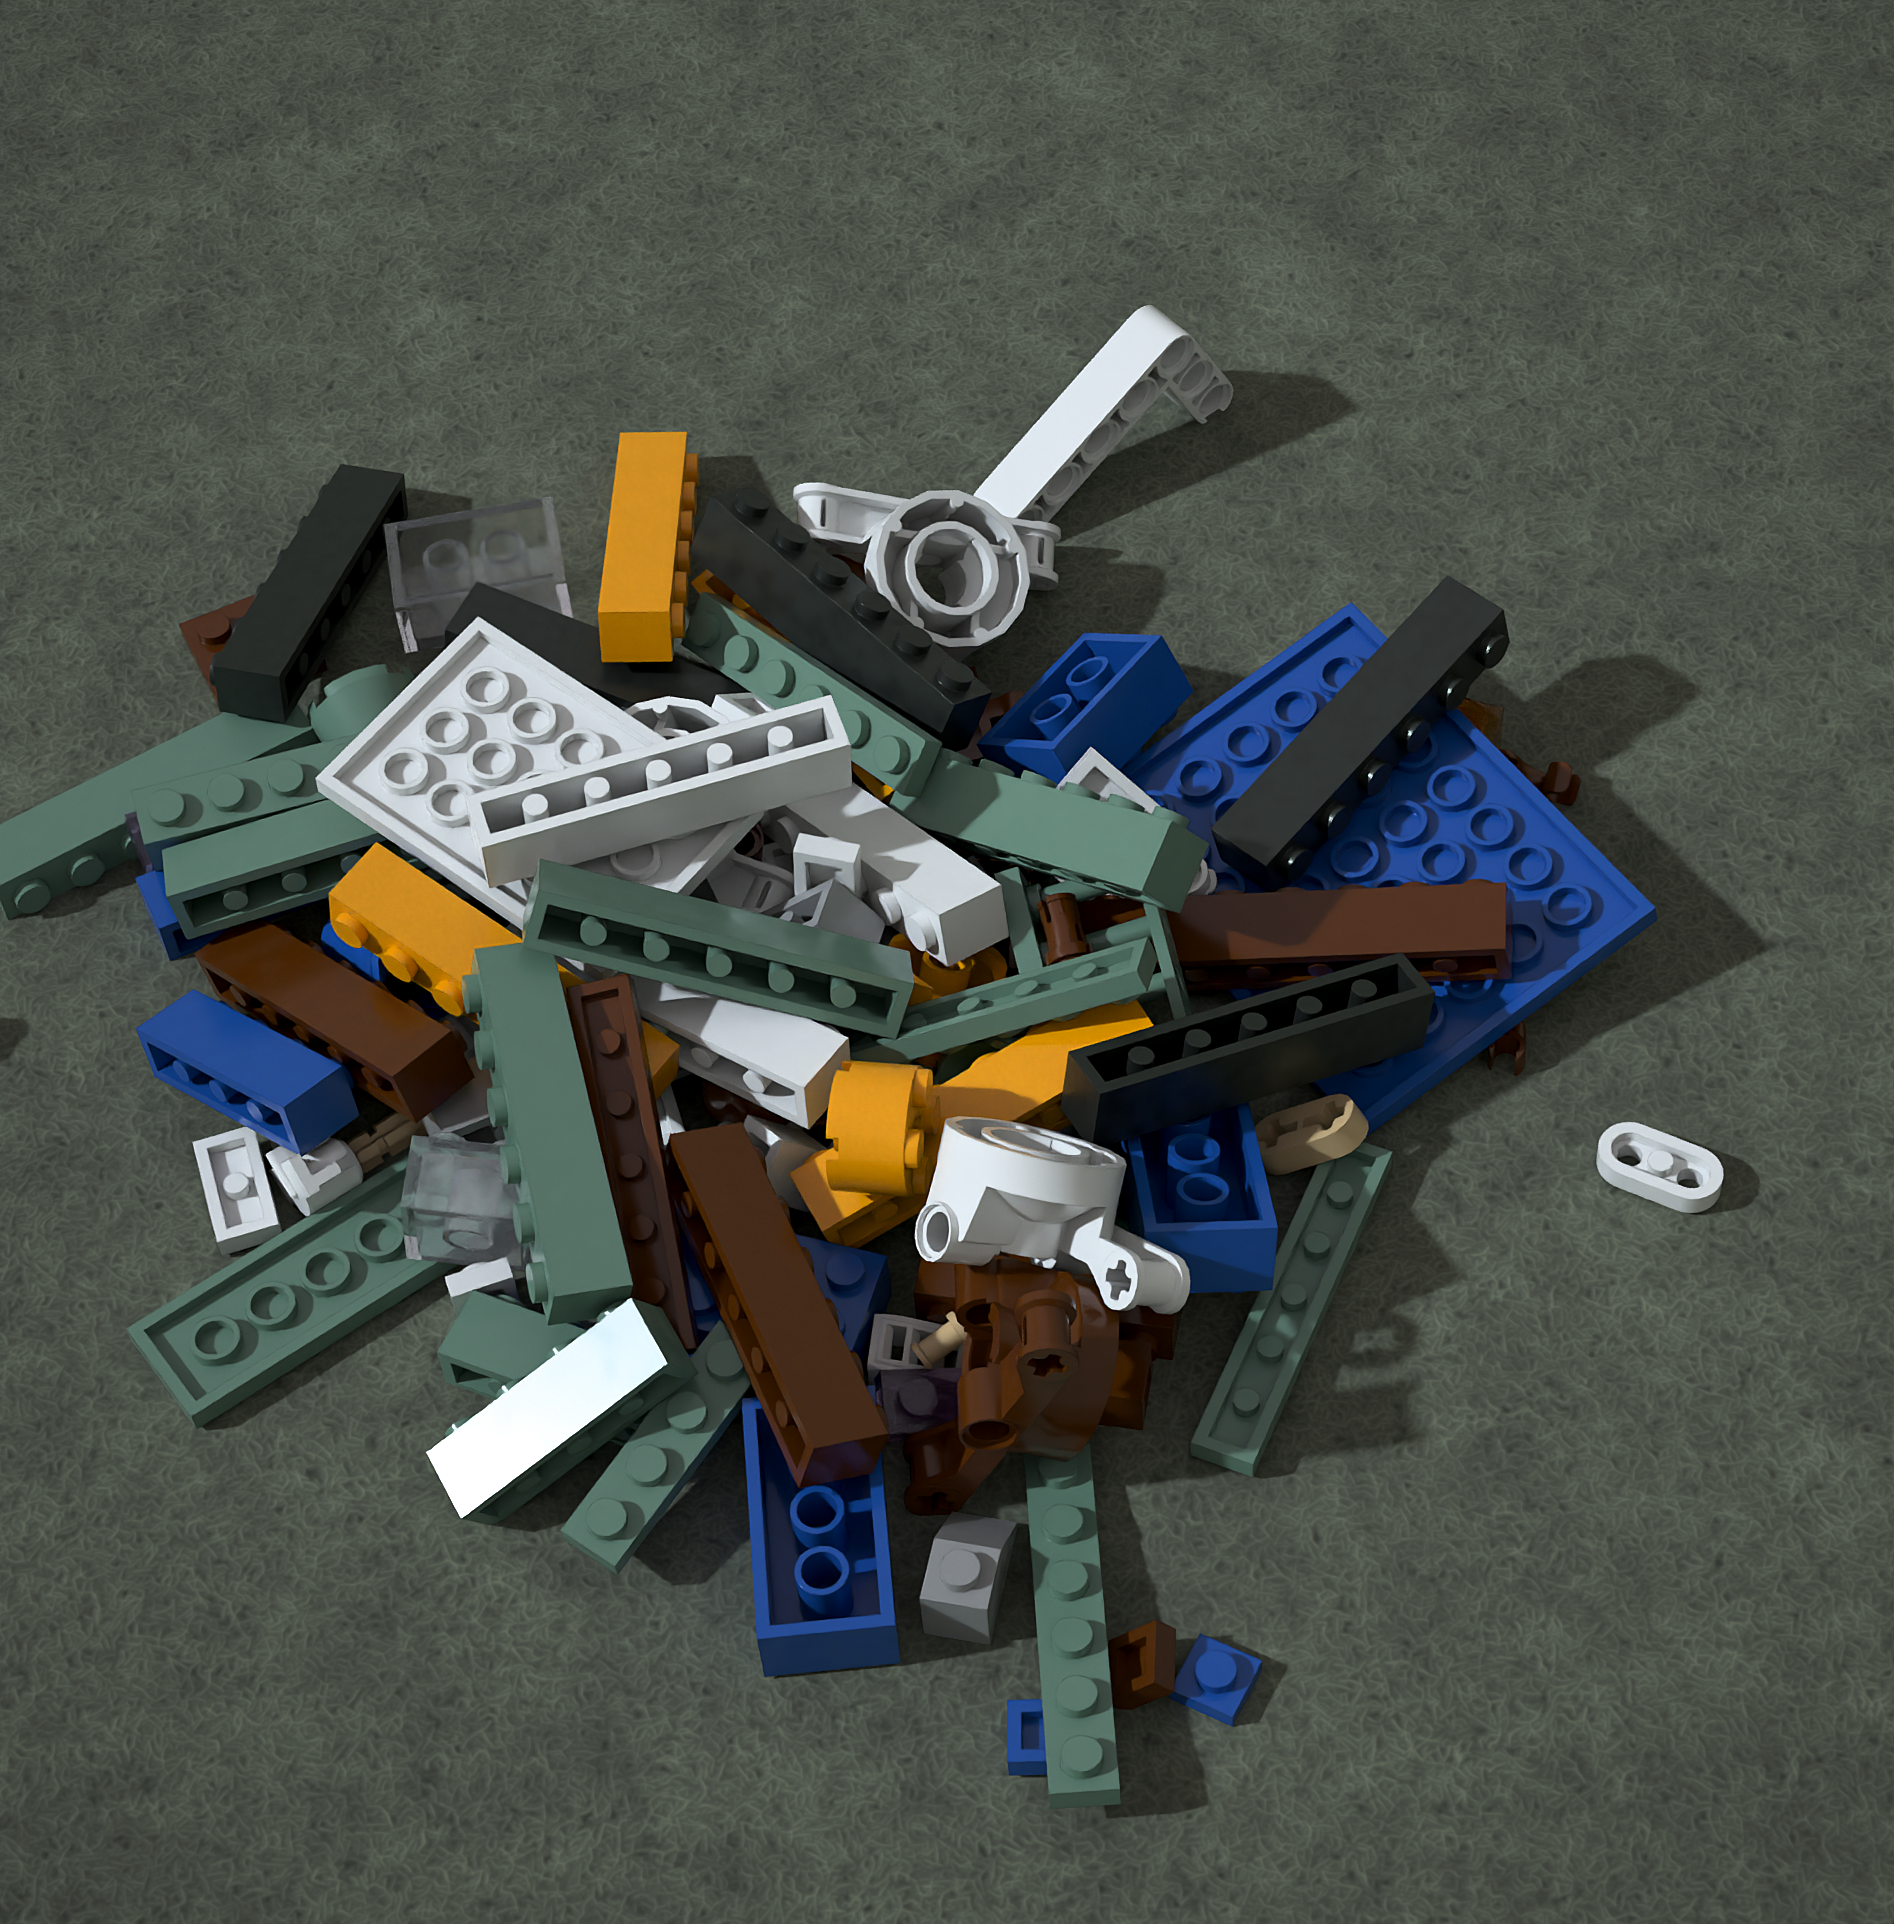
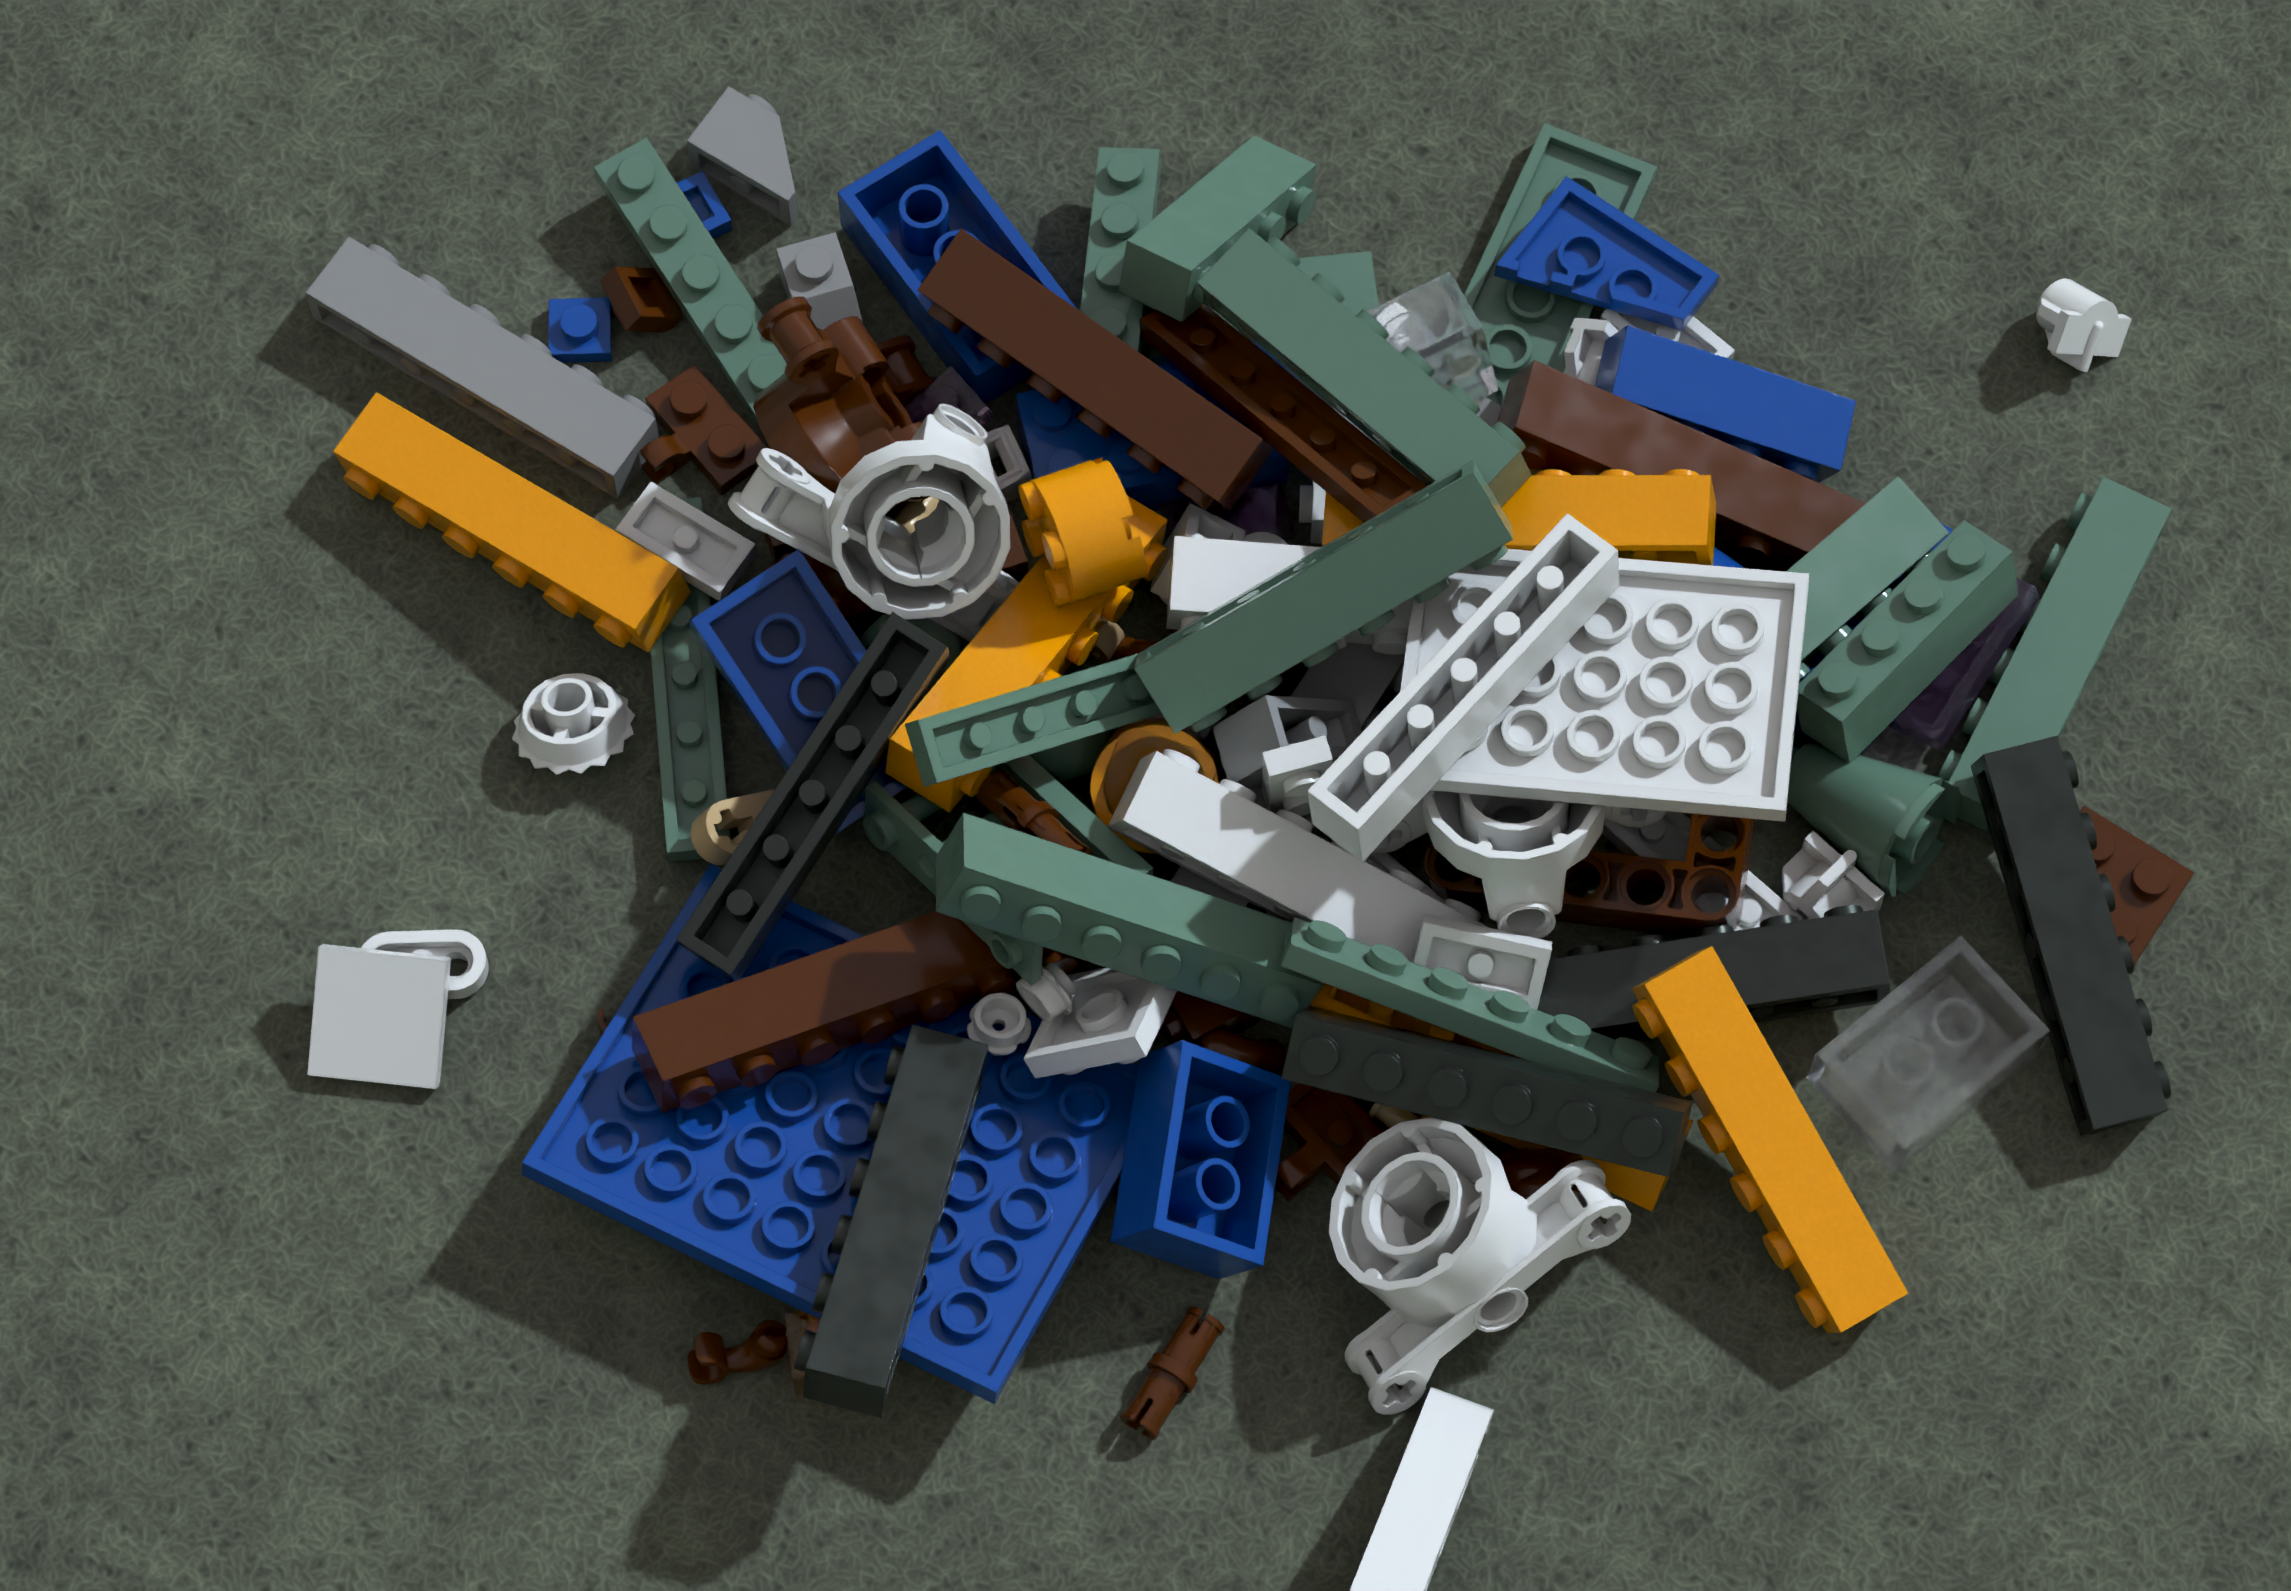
camera: 145 degrees right, 15 degrees up
(242, 1249) = (1606, 259): none -> blue wing
(950, 1764) = (746, 152): none -> light grey slope
(1151, 1522) = (701, 431): none -> reddish brown plate
(1200, 629) = (1172, 1372): none -> reddish brown pin
(1231, 1384) = (697, 544): none -> white plate
(1338, 1676) = (483, 366): none -> light grey brick
(1391, 1491) = (511, 523): none -> light orange brick
(1420, 1304) = (572, 723): none -> white piece
(1720, 1130) = (379, 1016): none -> white tile

